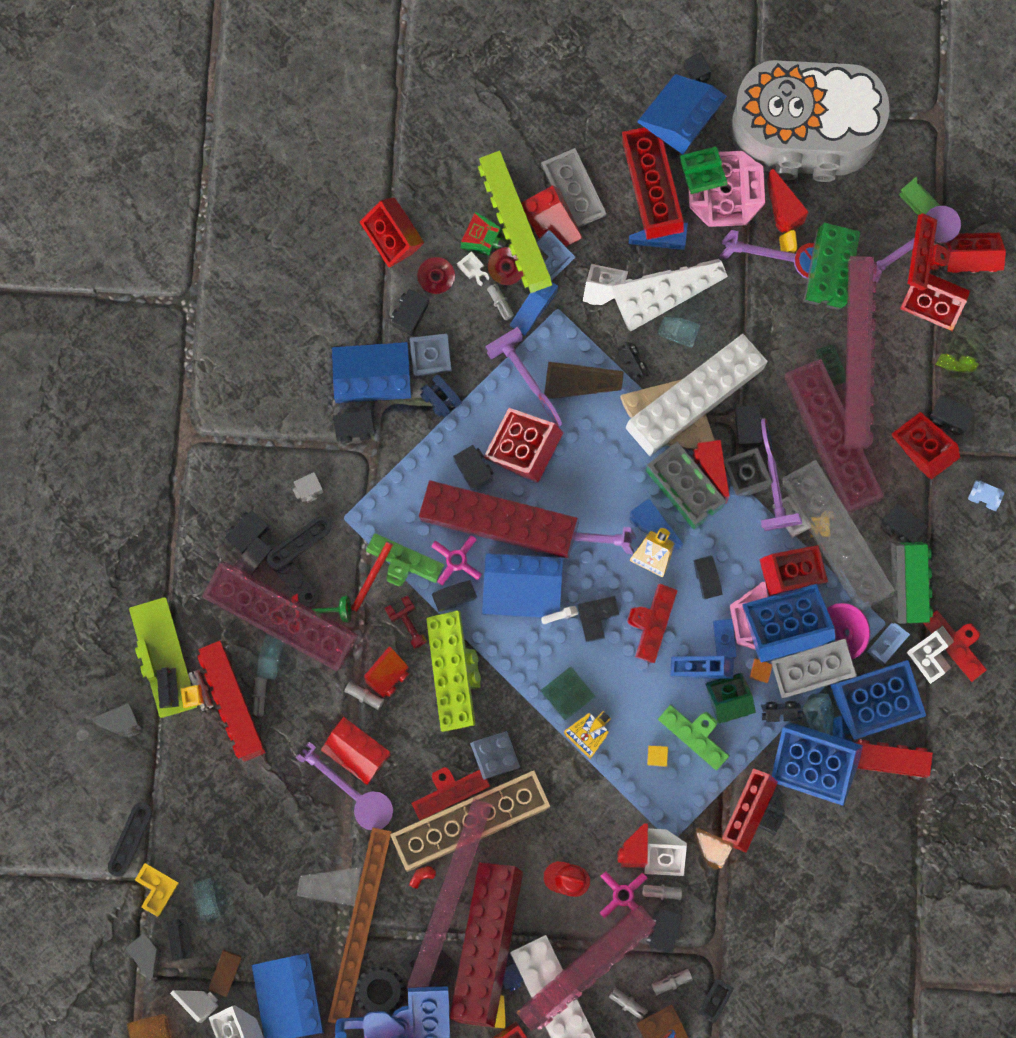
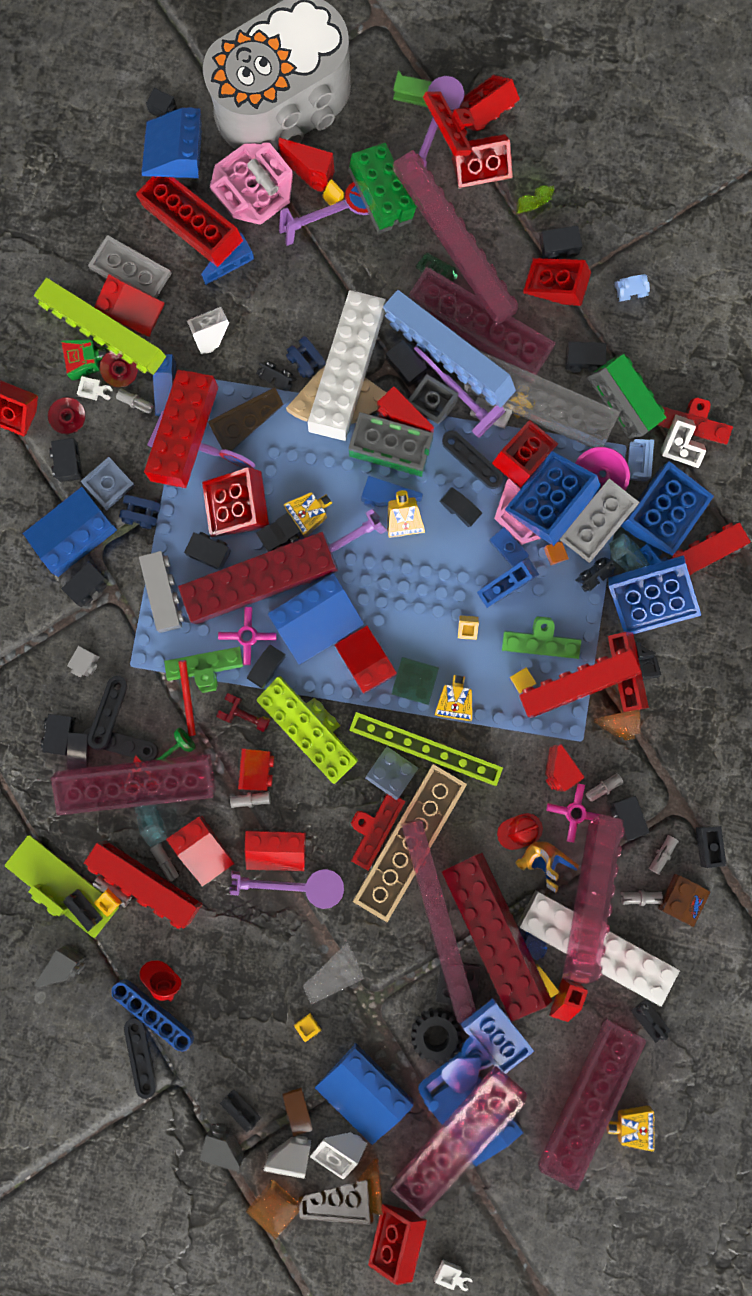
camera: 30 degrees left, 5 degrees up
(161, 888) = (191, 1077): yellow plate -> none
(170, 819) = (142, 1014): none -> blue beam
(190, 789) = (160, 980): none -> red piece
(206, 900) = (239, 1062): clear light blue slope -> none
(280, 912) = (307, 1027): none -> yellow tile
(295, 708) = (200, 850): none -> slope
(360, 924) = (380, 992): dark orange plate -> none
(411, 475) = (161, 592): none -> light grey brick
(420, 874) = (400, 912): red arm -> none
(522, 353) = (181, 428): none -> red brick
(536, 755) = (426, 749): none -> lime brick
(539, 648) = (365, 659): none -> red slope
(542, 494) = (279, 533): none -> black brick
(557, 254) = (153, 329): medium blue plate -> none
(566, 613) = (367, 616): white bar -> none
(572, 913) = (545, 857): none -> pearl gold piece
(578, 493) = (308, 512): none -> torso
(592, 613) = (388, 602): black plate -> none
(643, 680) = (468, 627): none -> yellow slope
(652, 622) = (442, 574): red plate -> none
(659, 292) = (256, 306): white wing -> none
(660, 355) = (295, 356): none -> dark blue brick
(665, 853) = (587, 753): white slope -> none
(679, 330) = (296, 324): clear light blue slope -> none
(699, 788) = (580, 683): none -> red brick
(703, 170) = (223, 177): green slope -> none
(730, 698) = (548, 591): dark green slope -> none
(737, 190) = (262, 177): none -> light grey pin
(745, 545) = (472, 459): none -> black plate
(787, 440) = (449, 349): none -> medium blue brick

